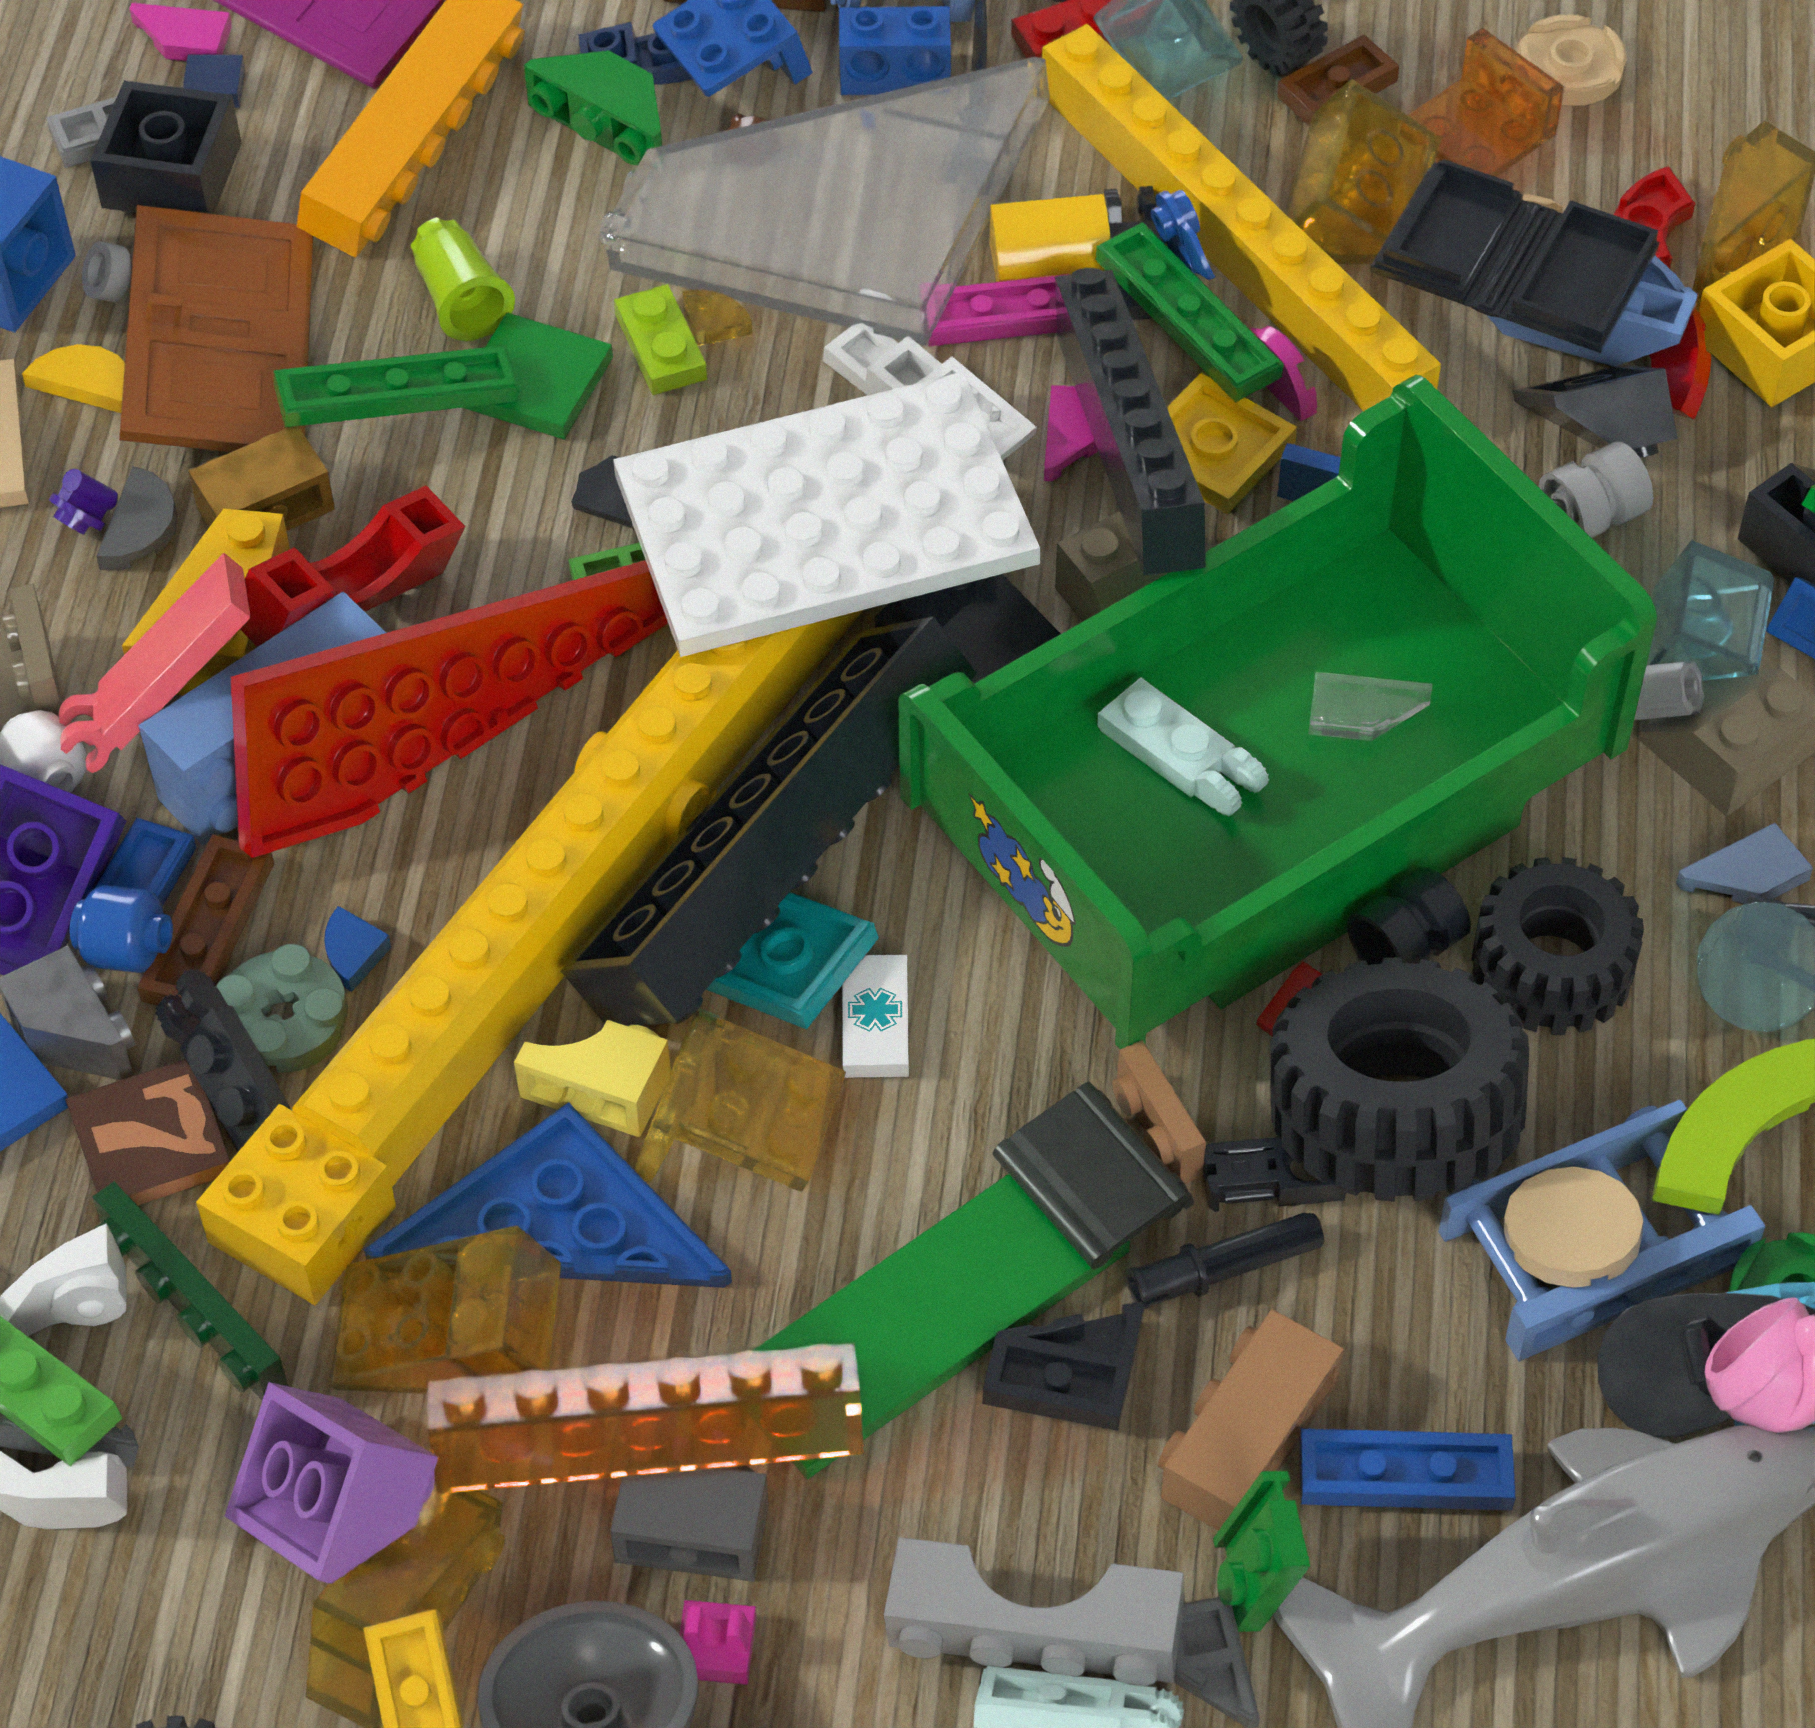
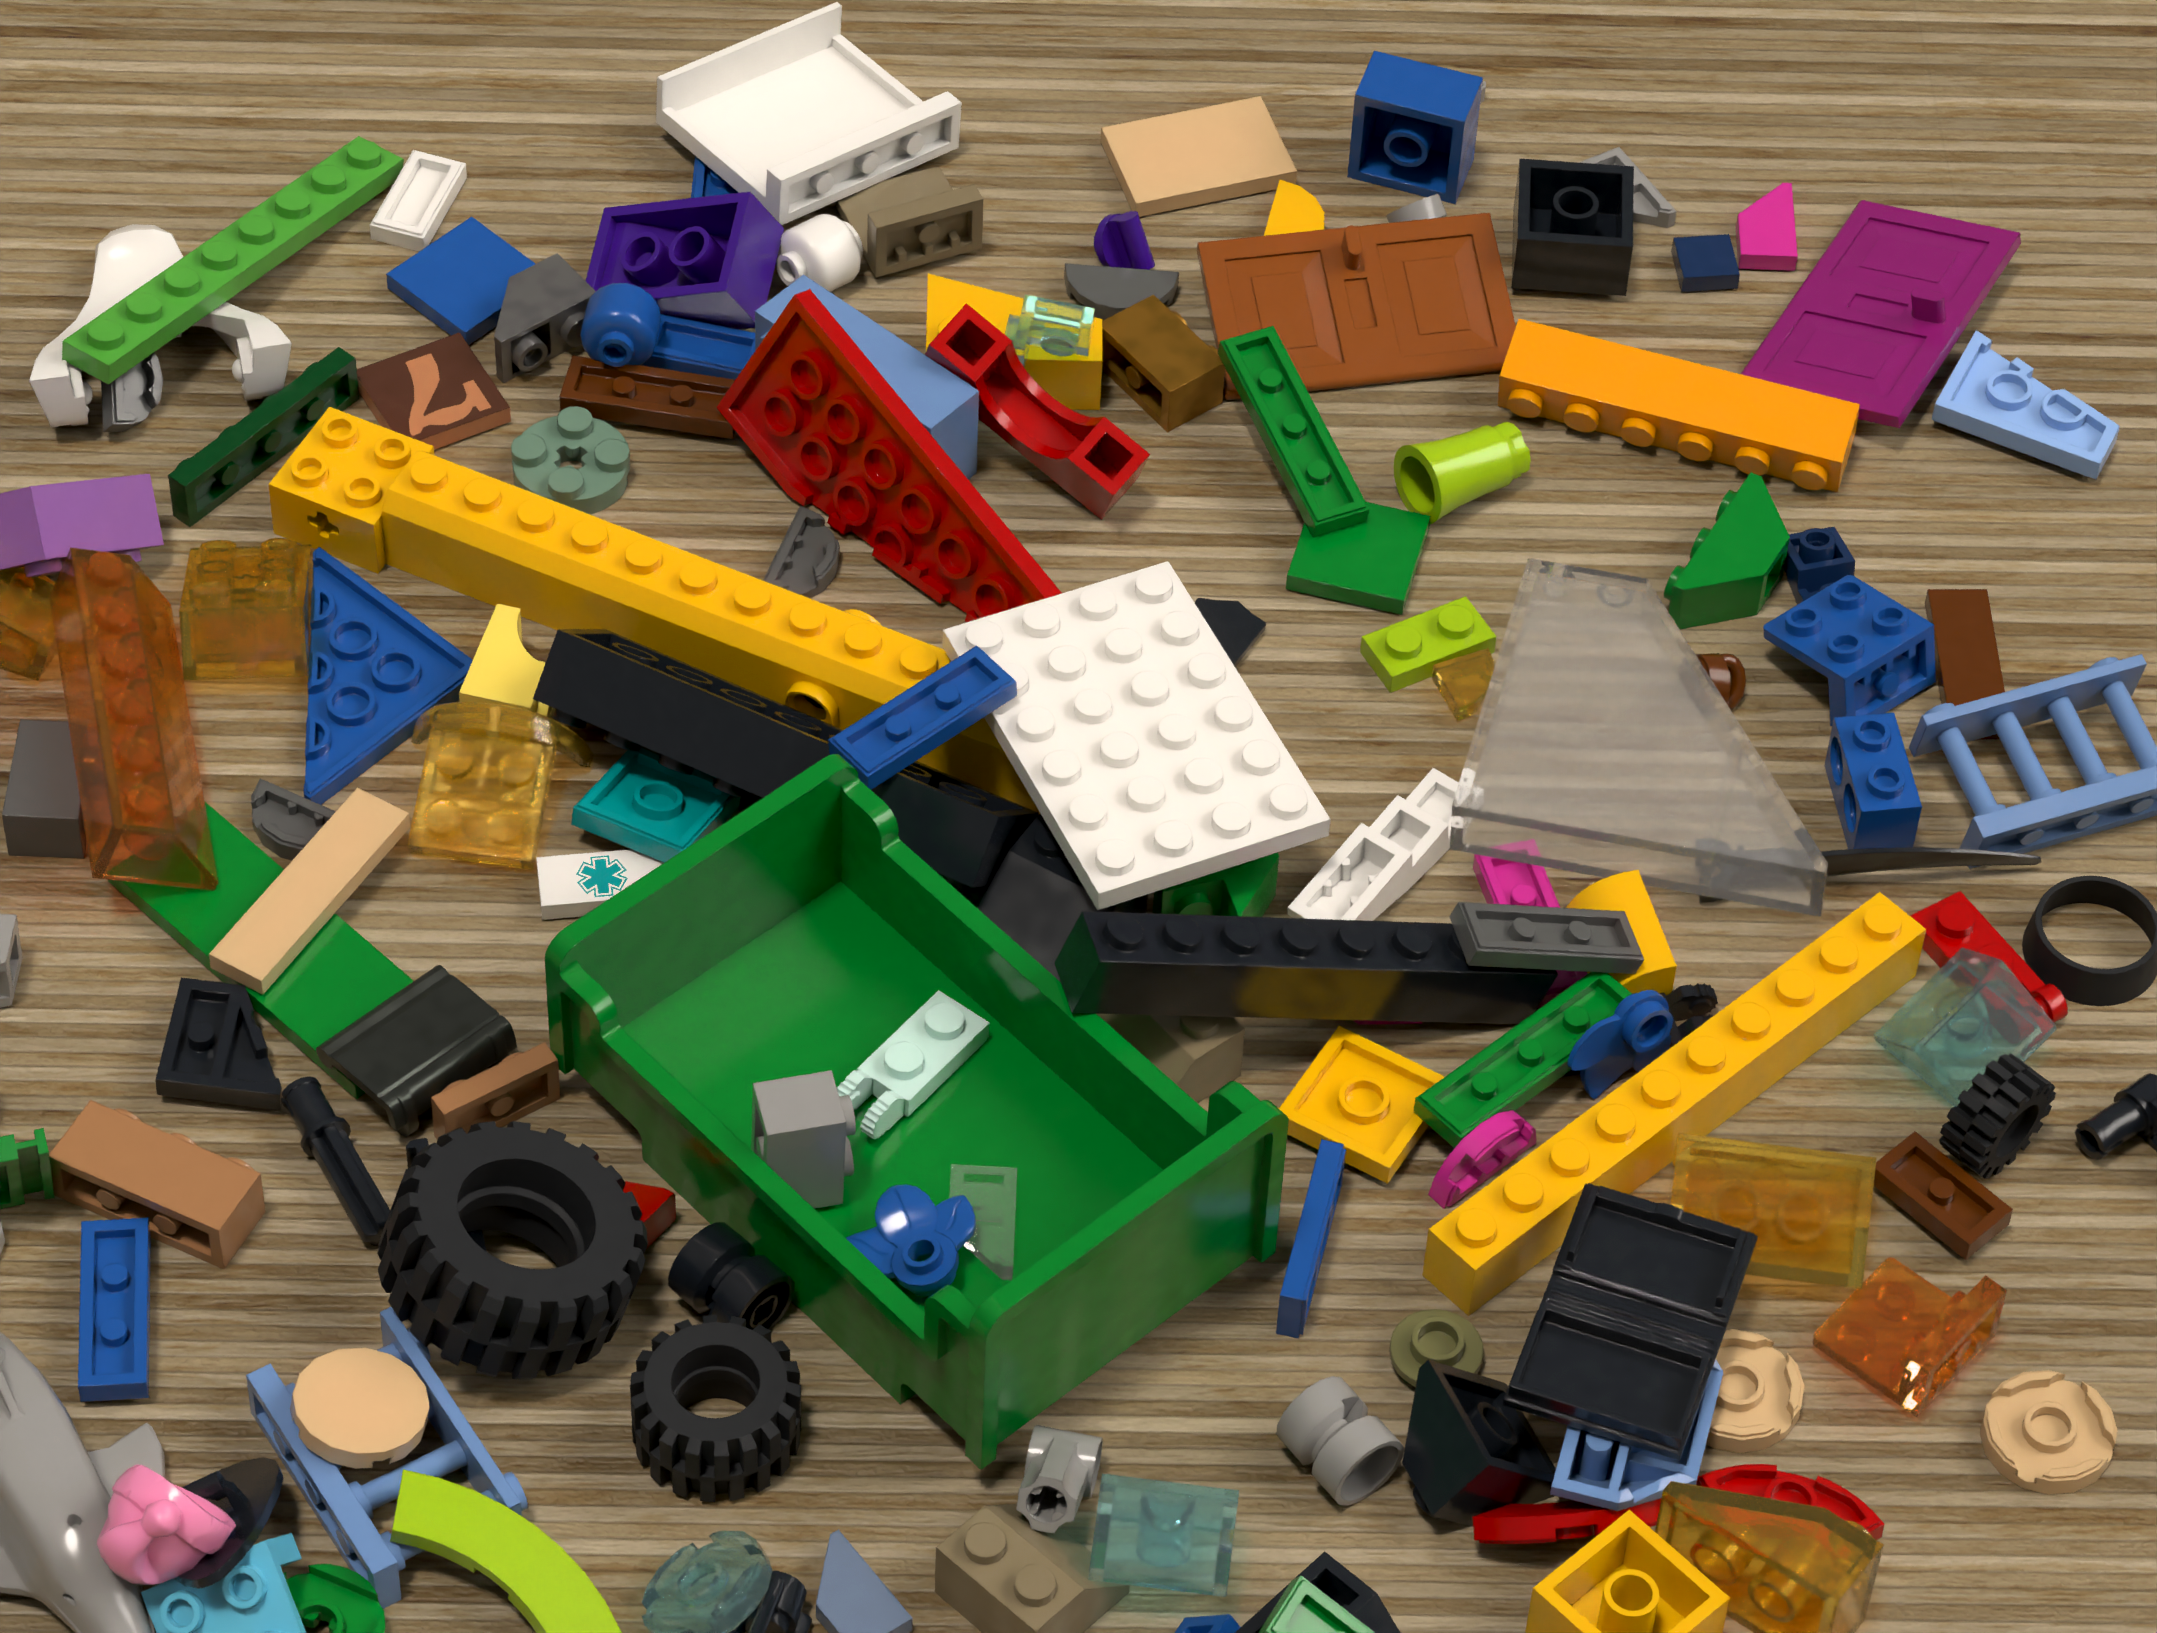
camera: 80 degrees right, 5 degrees down
(158, 663) = (866, 278): coral tile -> none
(220, 1055) = (502, 411): black hinge -> none
(263, 526) = (1053, 325): none -> clear light blue bracket
(353, 946) = (643, 502): blue tile -> none
(457, 814) = (806, 556): none -> dark grey tile
(759, 1290) = (285, 819): none -> dark grey tile
(811, 656) = (924, 716): none -> blue tile
(876, 1264) = (309, 891): none -> tan tile
(1090, 259) = (1546, 938): none -> dark grey tile
(1314, 798) = (803, 1134): none -> light grey brick
(1391, 752) = (917, 1230): none -> blue plate
(1495, 419) = (1435, 1337): none -> olive piece

